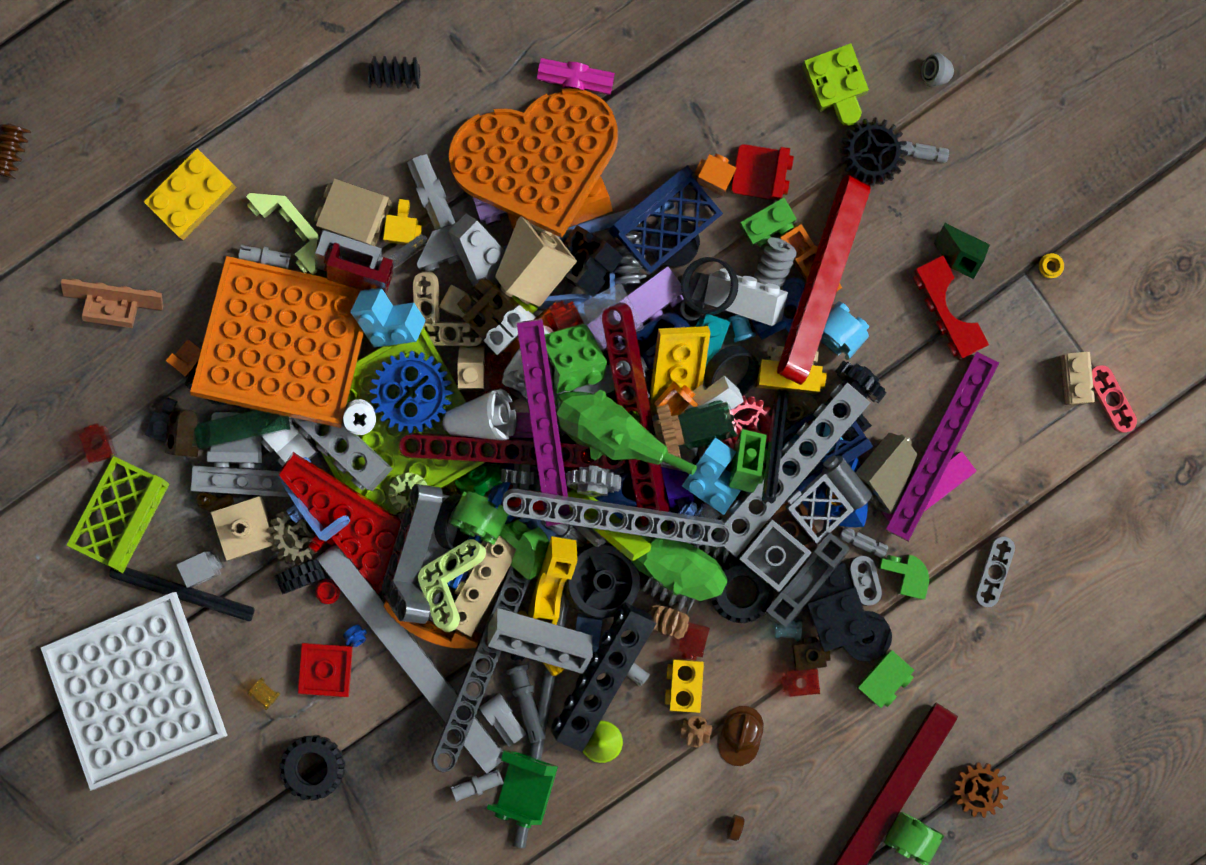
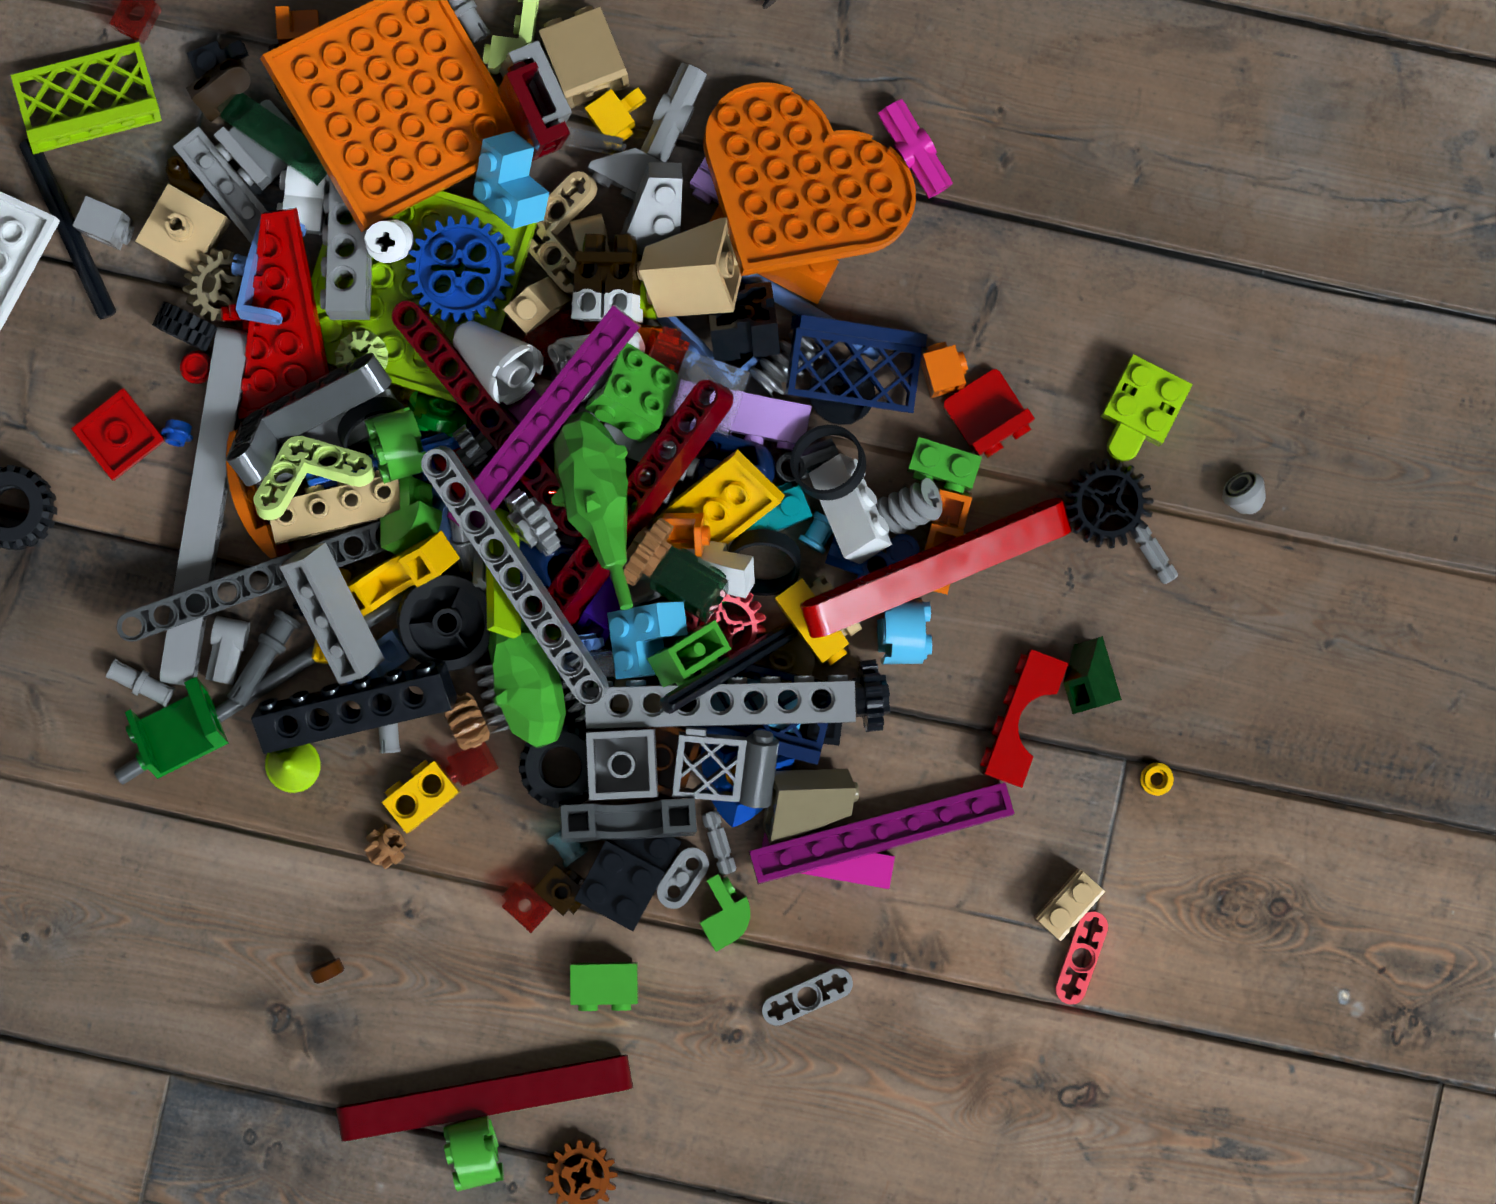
camera: 50 degrees right, 0 degrees up
(264, 693) = (41, 396): clear yellow bush -> none
(741, 735) = (422, 895): reddish brown piece -> none
(873, 648) = (627, 947): black plate -> none

